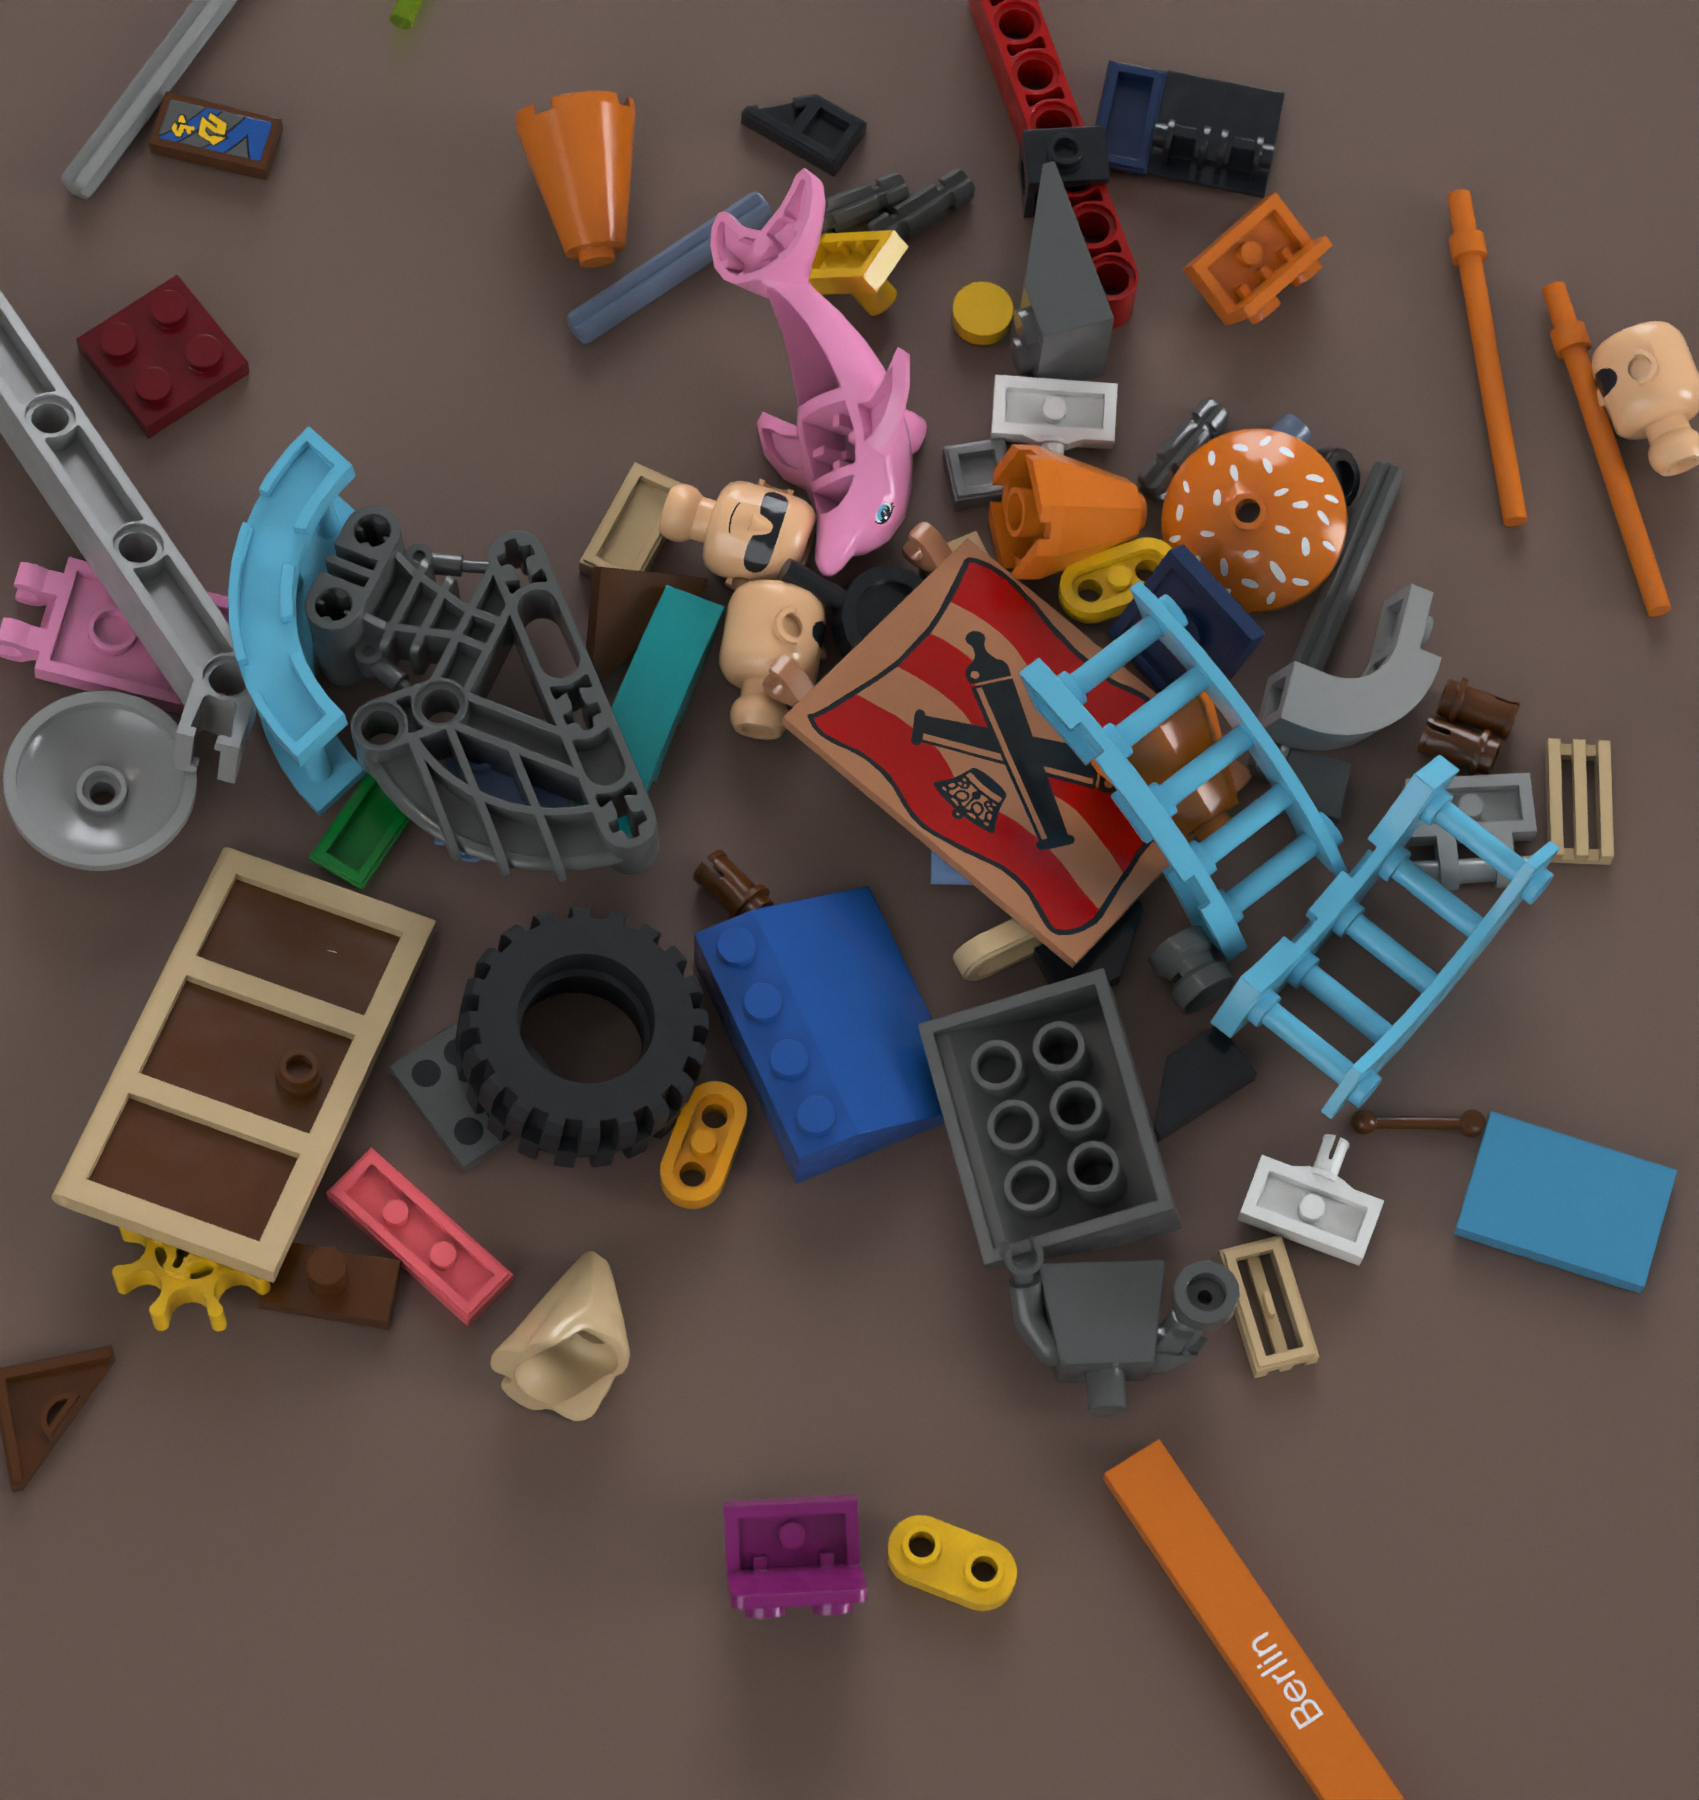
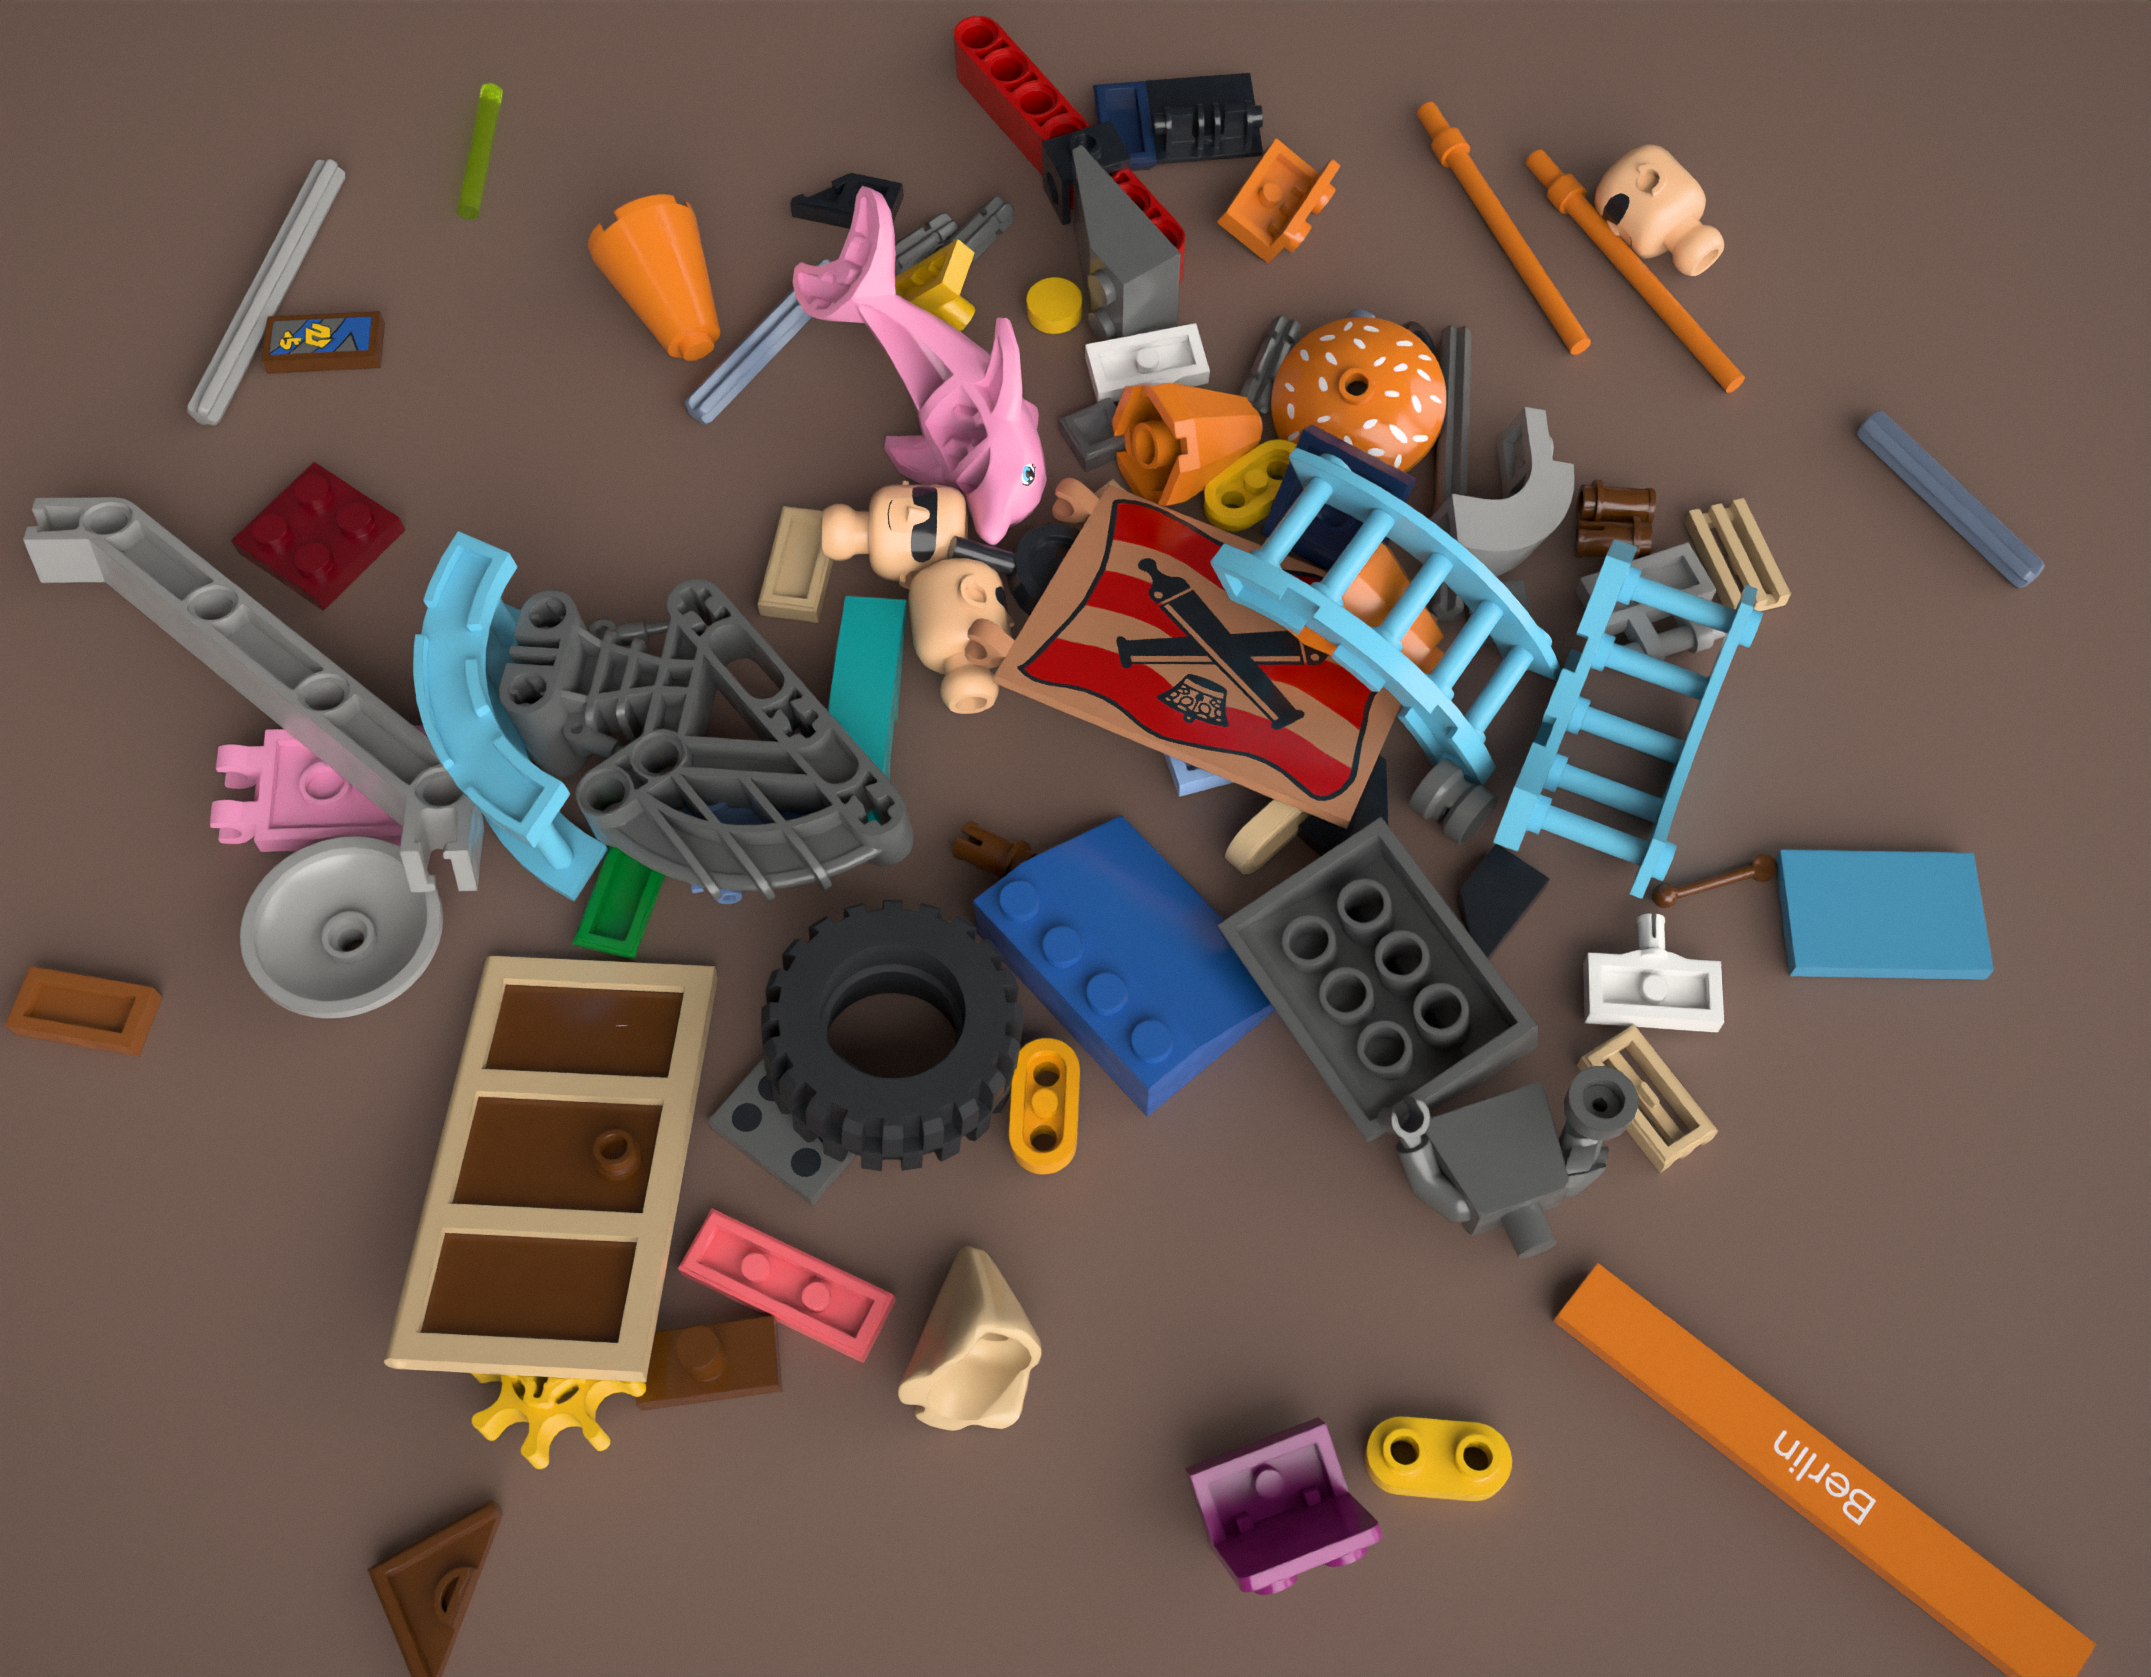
camera: 10 degrees left, 5 degrees down
(621, 611) = (810, 630): reddish brown tile -> none

